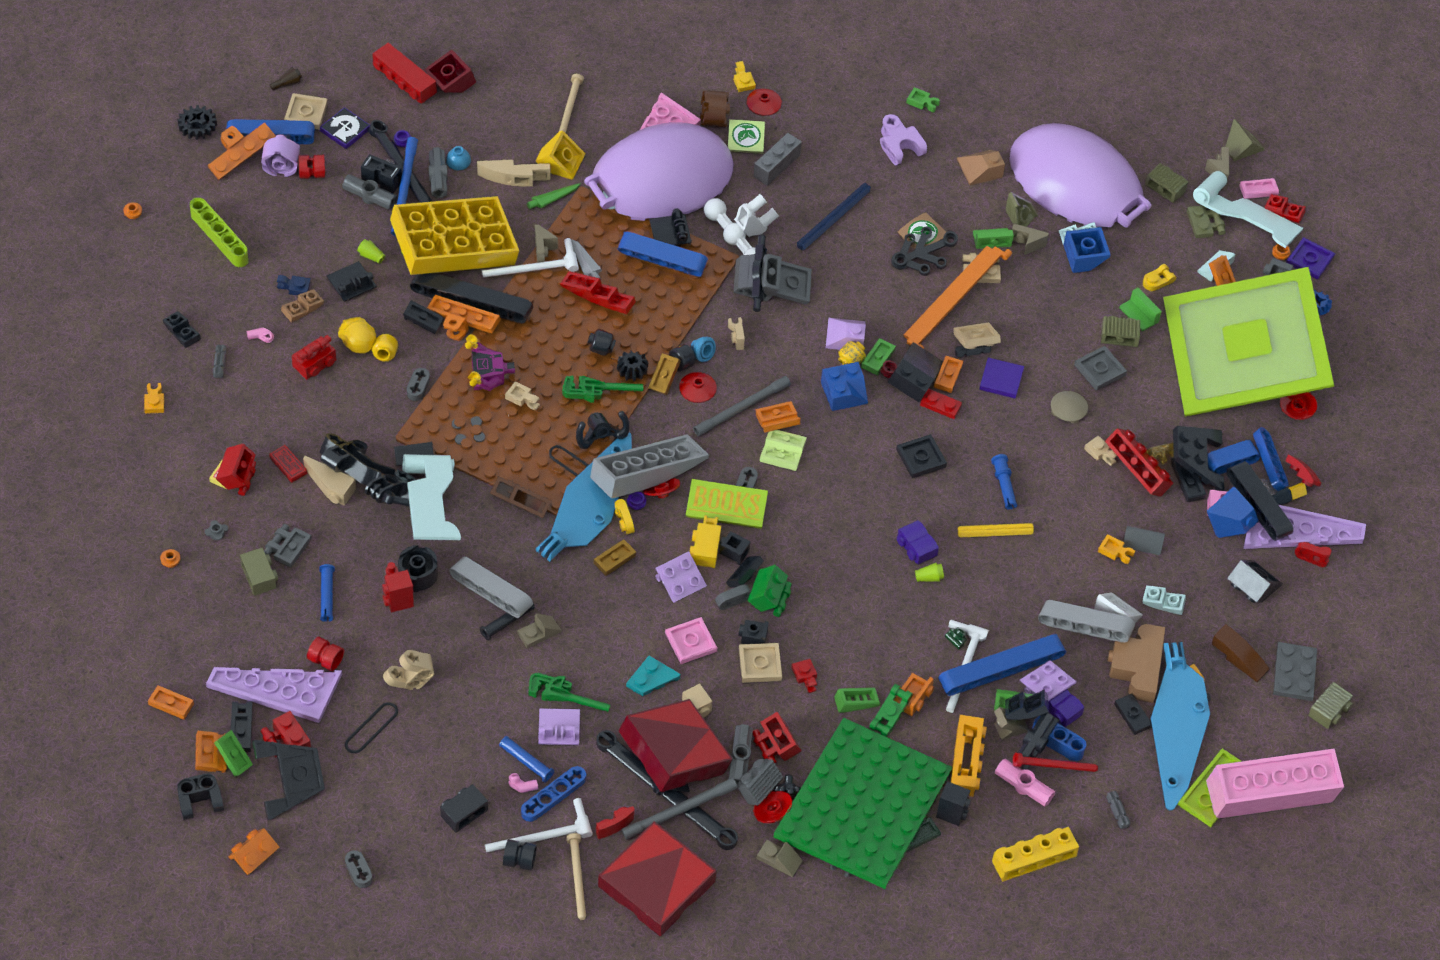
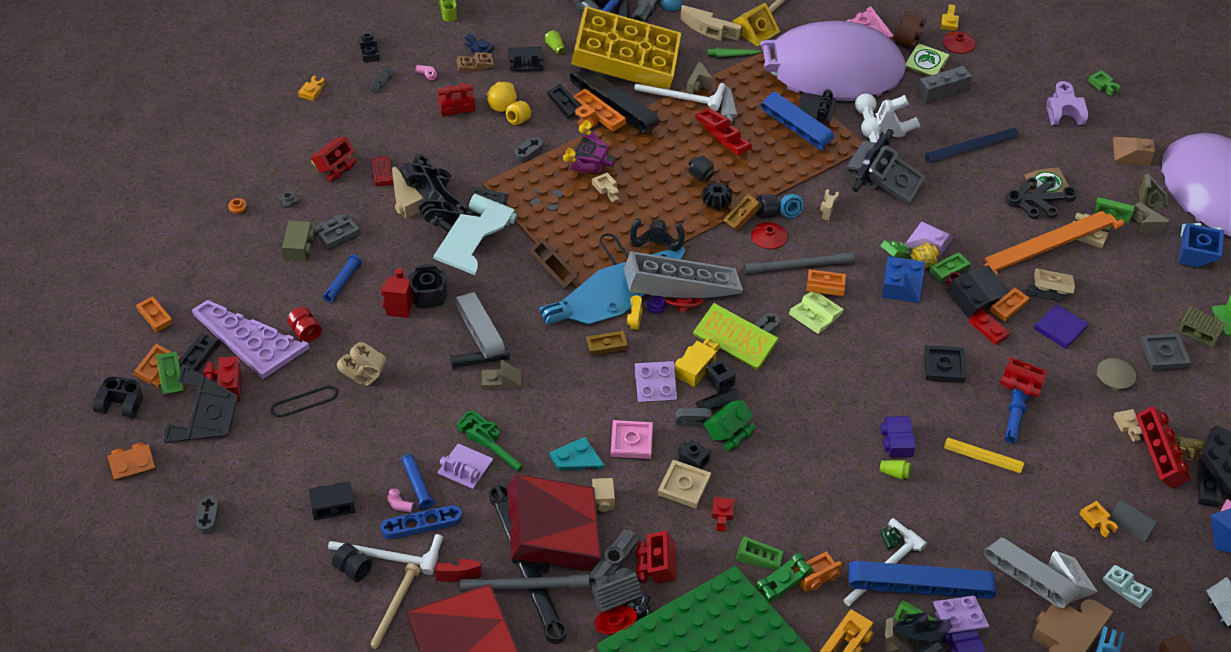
camera: 30 degrees right, 5 degrees down
(592, 389) = (670, 201): green piece -> none
(825, 357) = (897, 249): none -> bright green plate
(996, 443) = (1023, 377): none -> red brick

